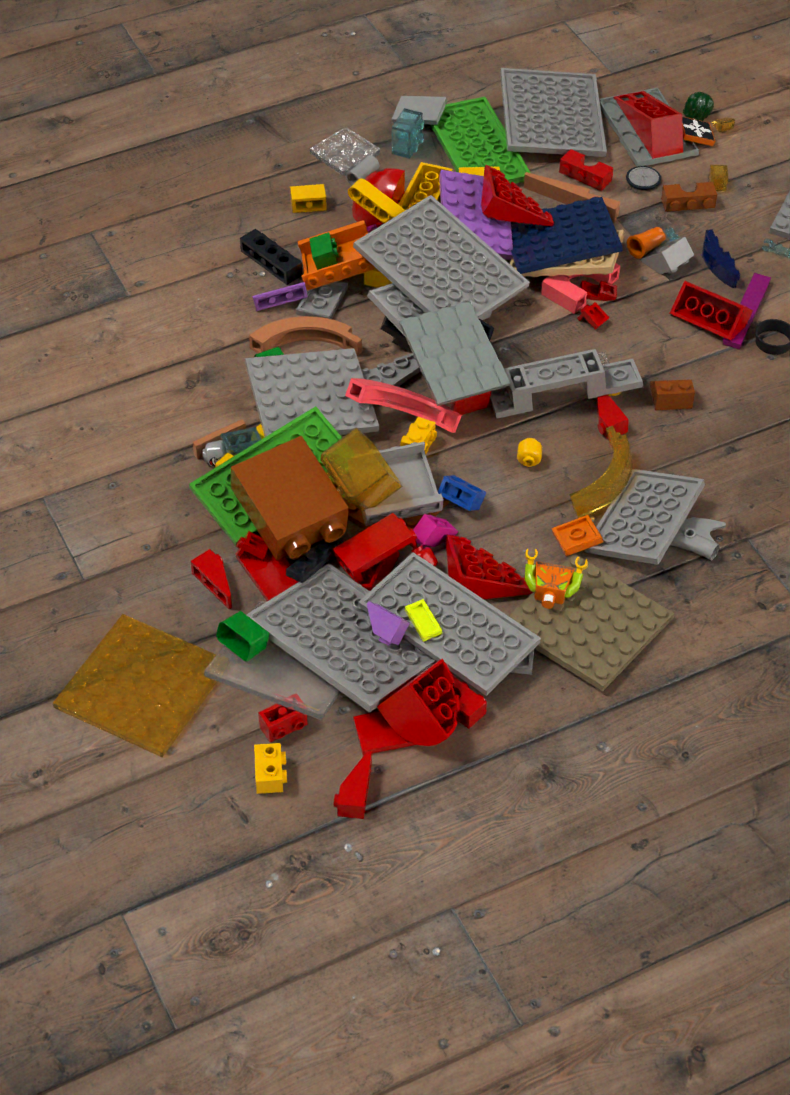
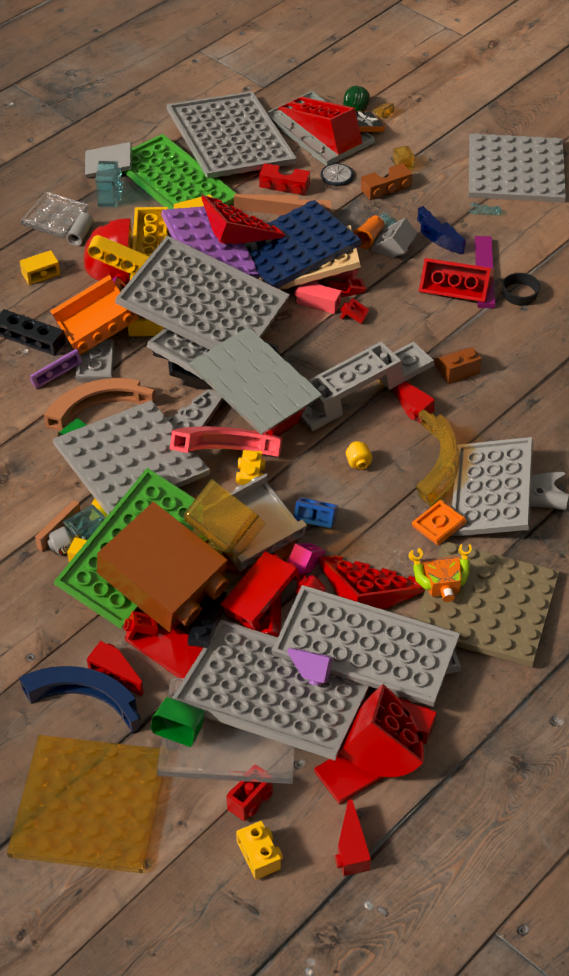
camera: 20 degrees left, 0 degrees up
(179, 579) = (82, 681): none -> dark blue arch
(324, 250) = (81, 314): green brick -> none
(423, 620) = (343, 650): neon yellow tile -> none

